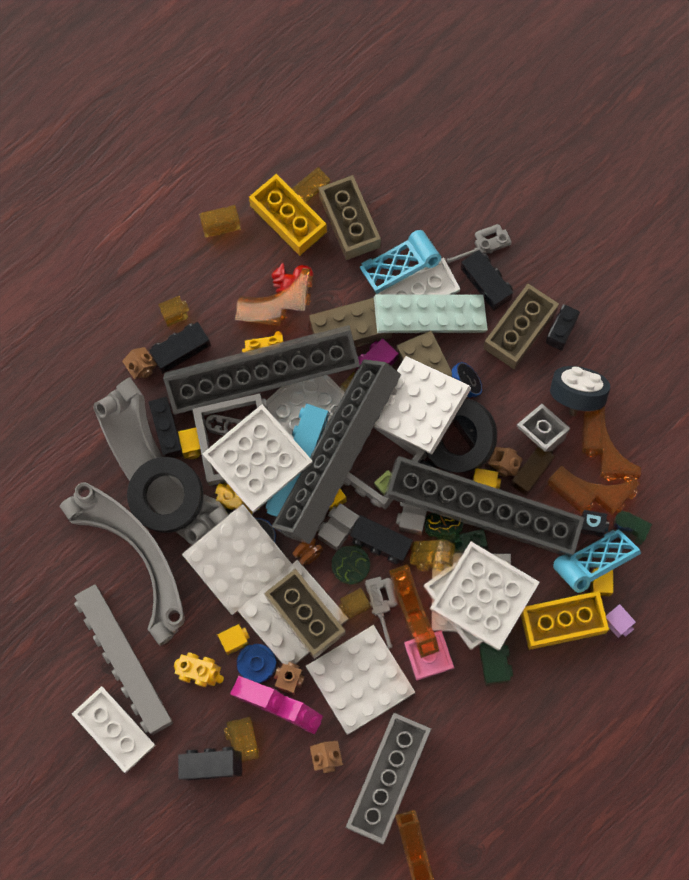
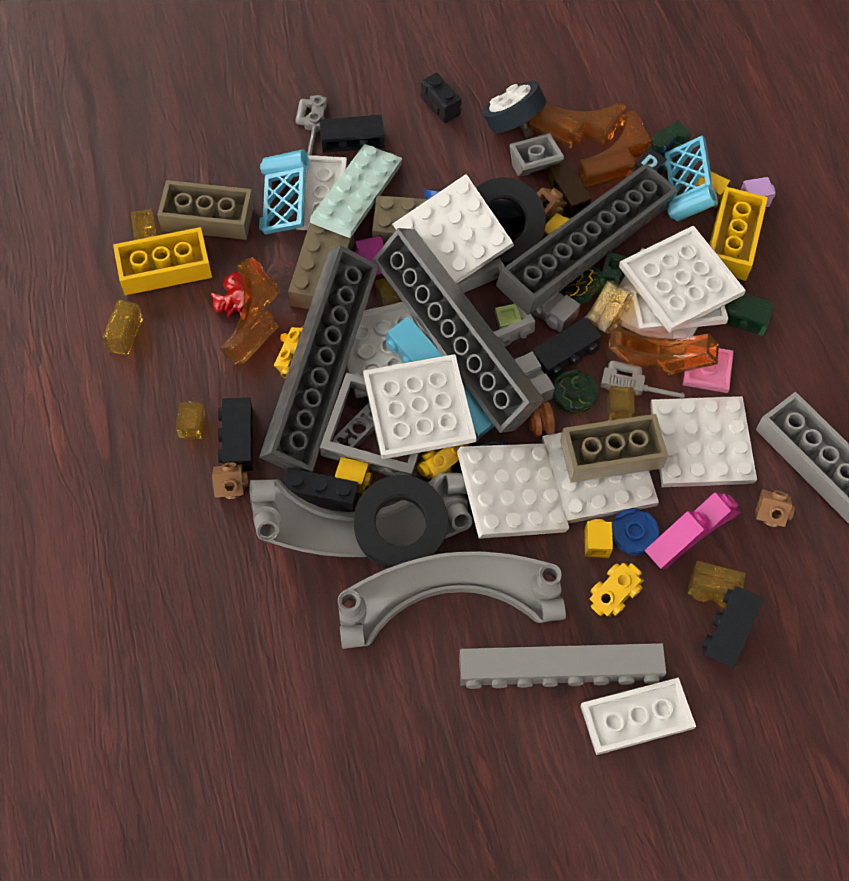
camera: 65 degrees left, 10 degrees down
(285, 685) = (671, 503): medium nougat brick -> none
(521, 326) = (419, 126): dark tan brick -> none

